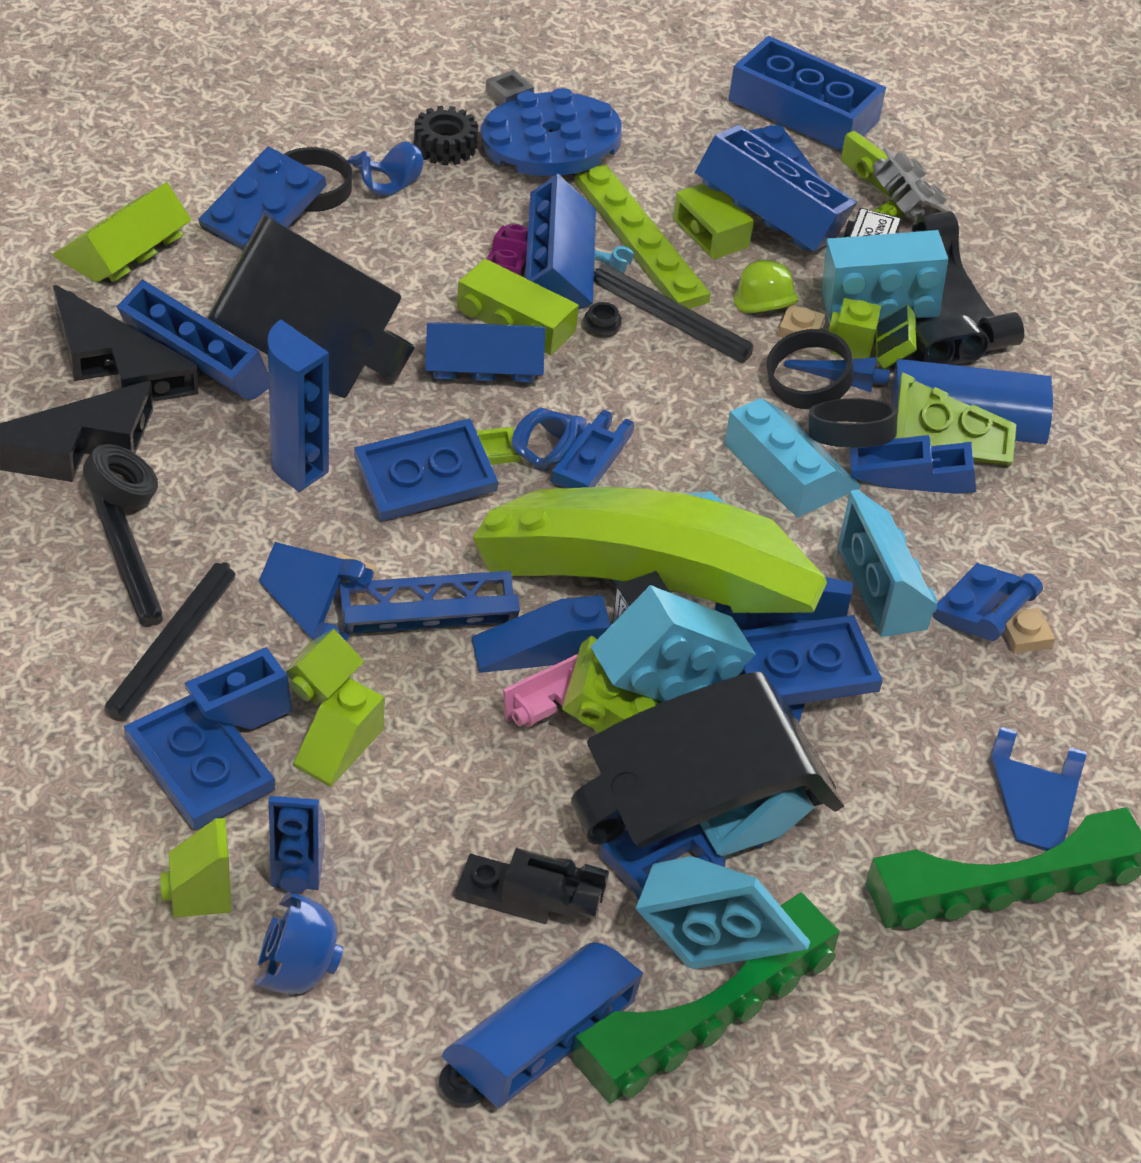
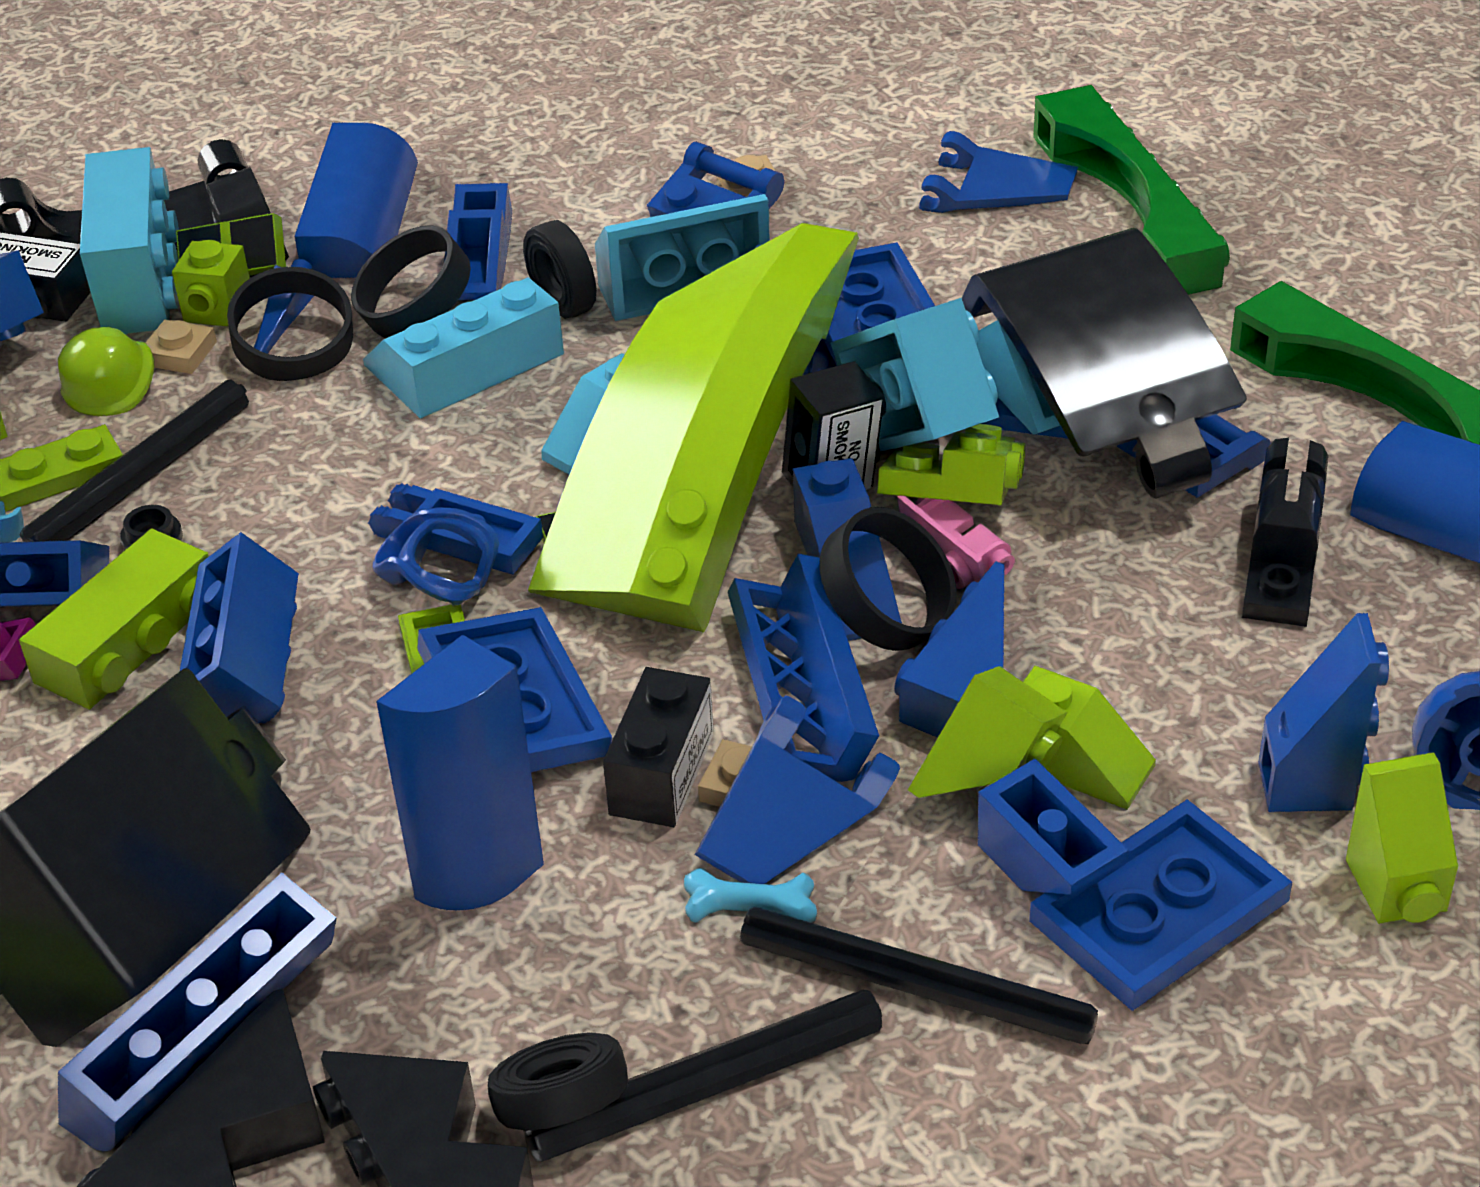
camera: 85 degrees left, 5 degrees down
(245, 590) = (714, 895): none -> medium azure piece
(365, 529) = (659, 747): none -> black brick
(426, 688) = (955, 652): none -> blue slope
(458, 615) = (853, 604): none -> black tyre
(715, 914) = (1311, 347): medium azure slope -> none
(870, 479) = (560, 267): none -> black tyre
(951, 421) = (413, 198): lime wing -> none

